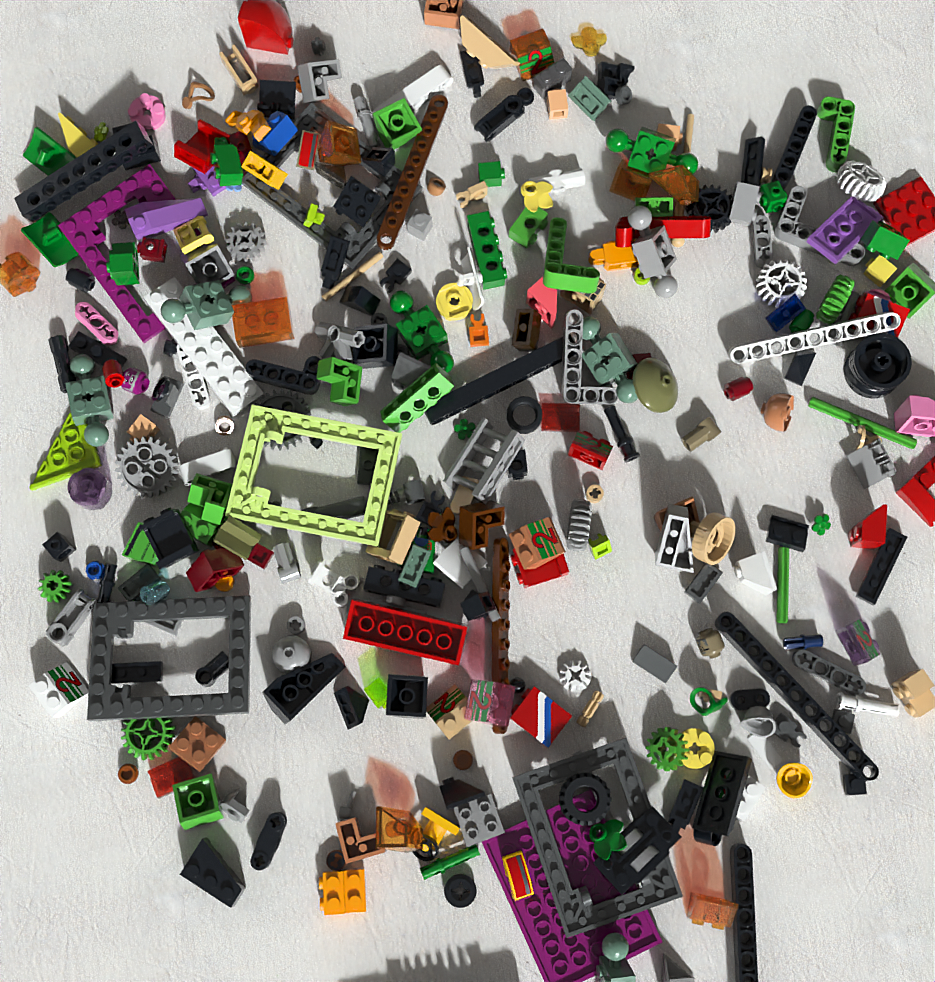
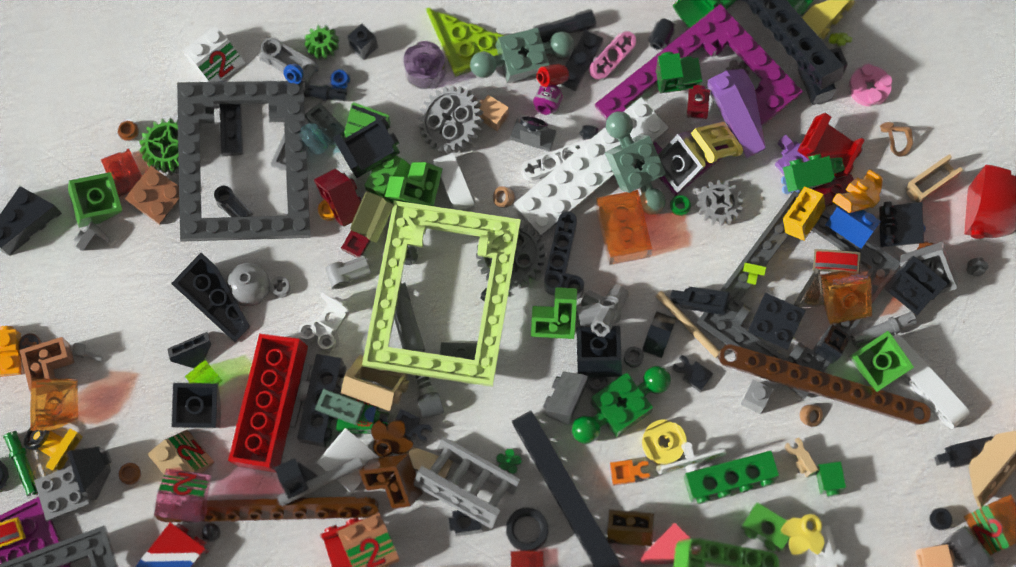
camera: 90 degrees right, 5 degrees down
(87, 605) = (293, 73): none -> blue plate
(268, 841) = (52, 273): black piece -> none
(333, 91) = (914, 285): none -> black slope
(419, 389) = (535, 400): bright green brick -> none
(500, 117) = (907, 487): black piece -> none

